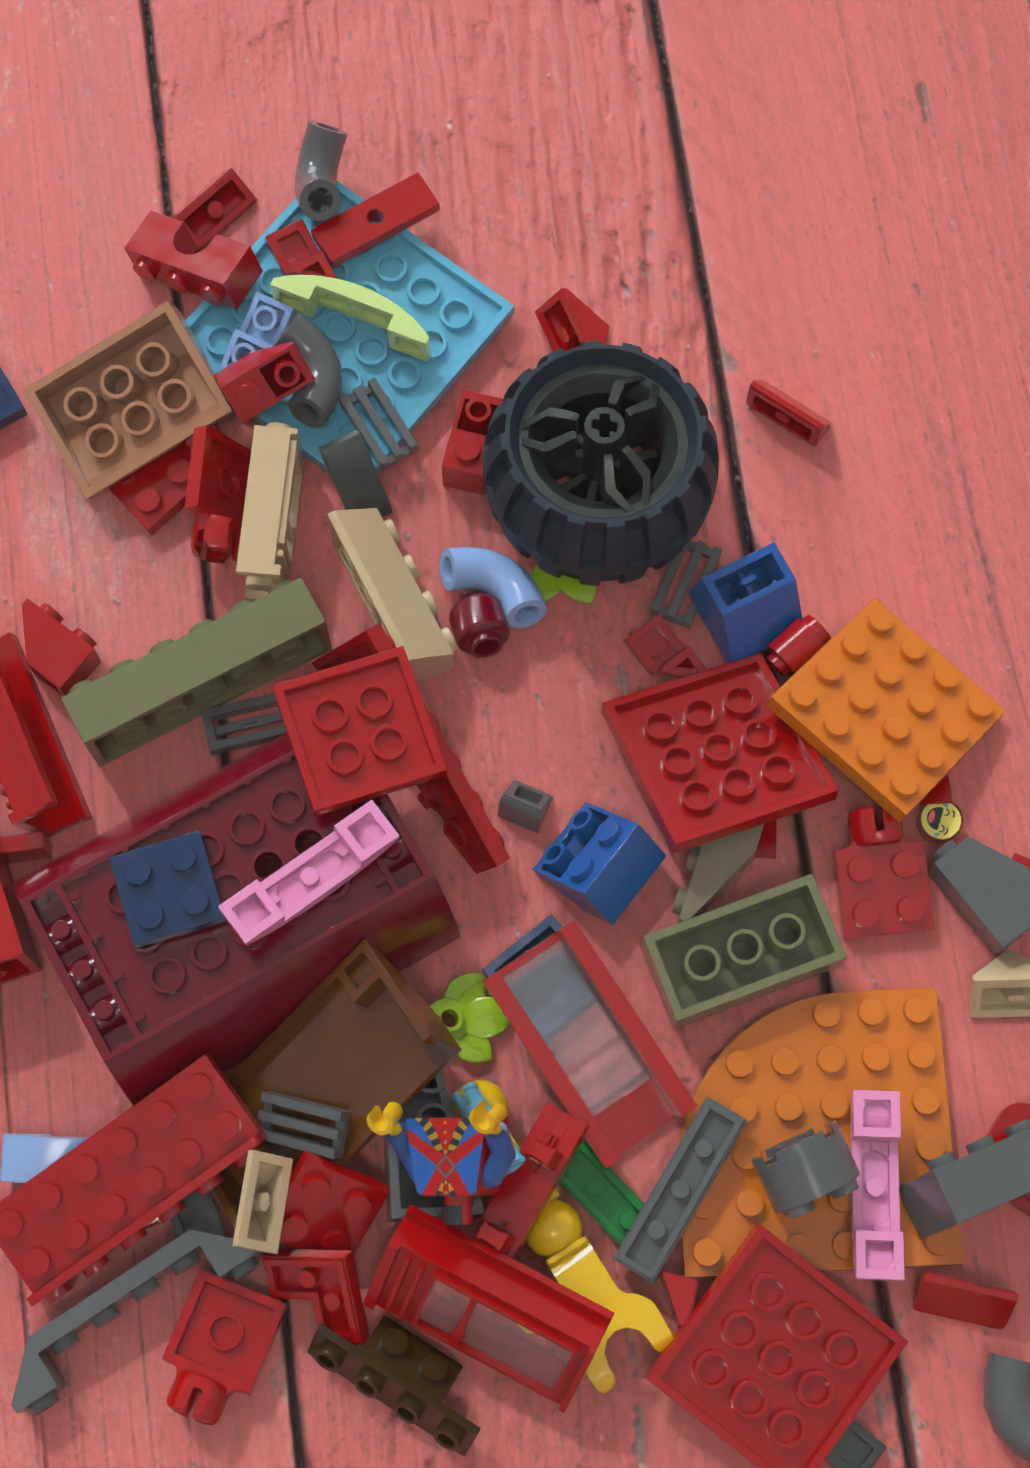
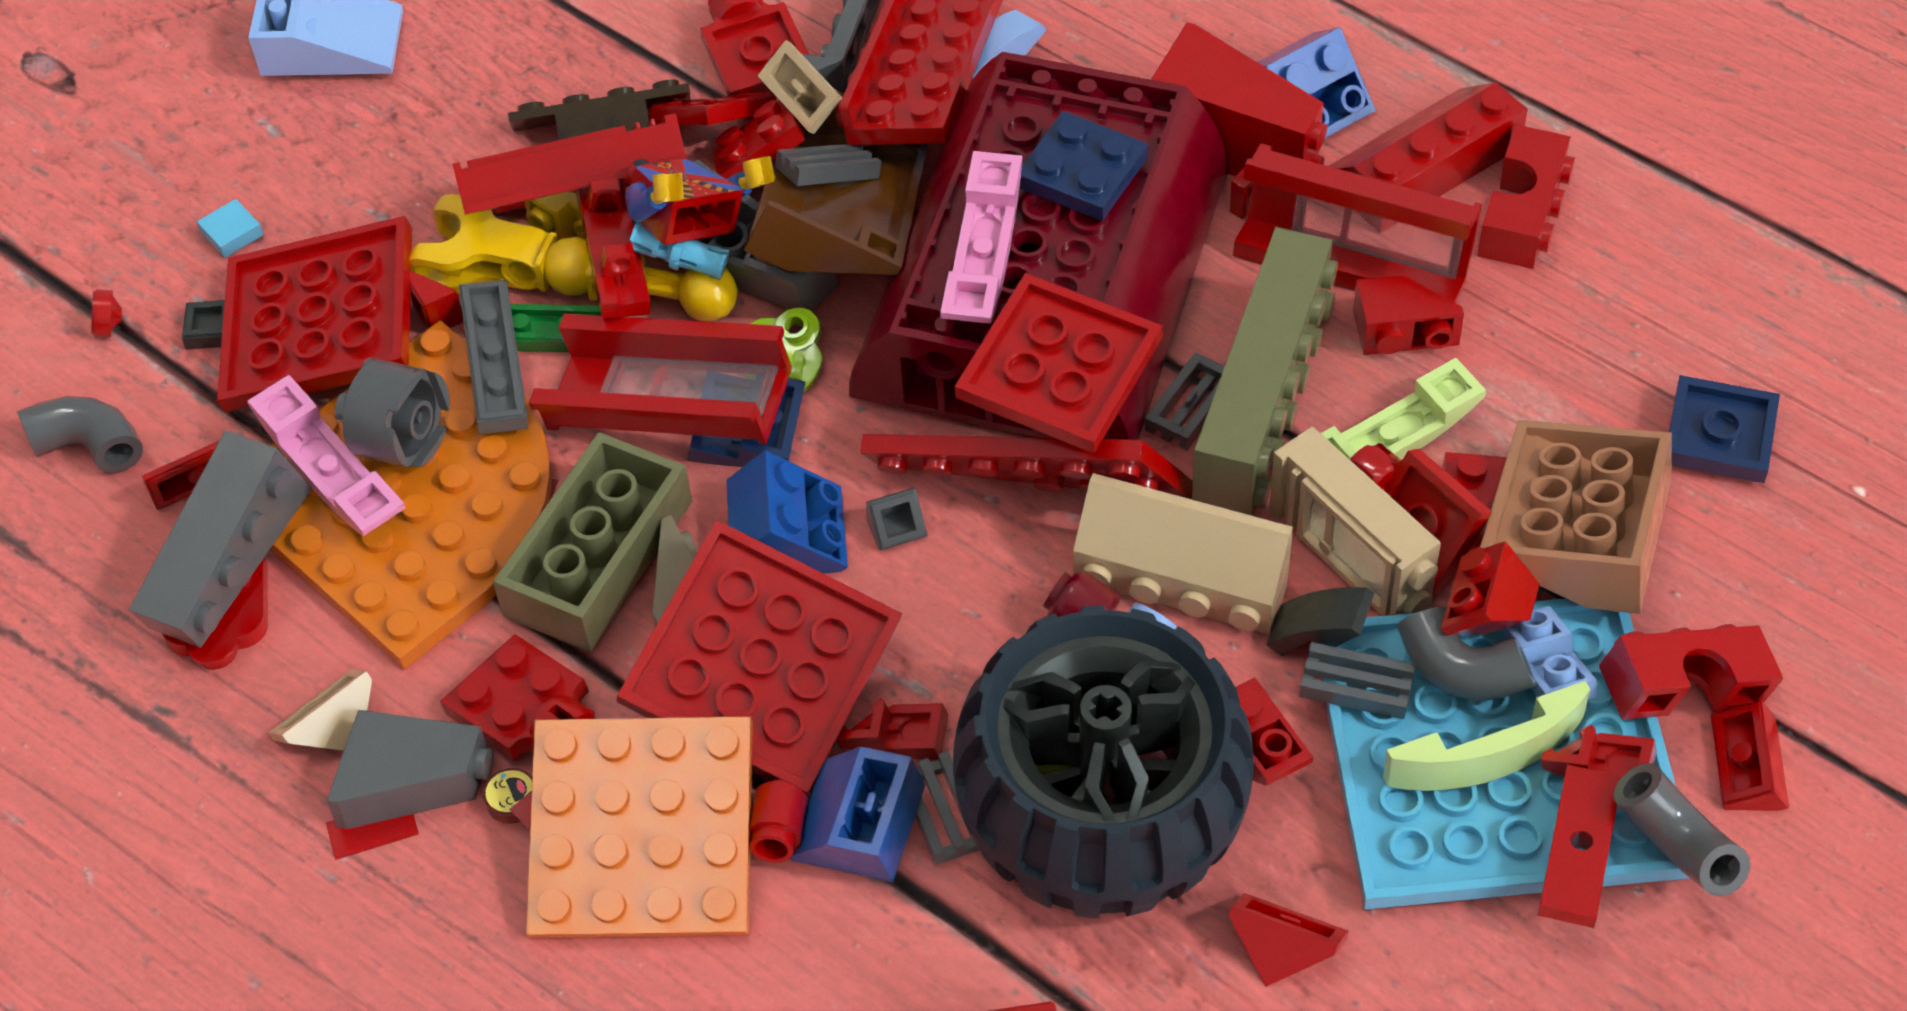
camera: 140 degrees right, 20 degrees down
(156, 580) = (1418, 419): none -> yellowish green slope

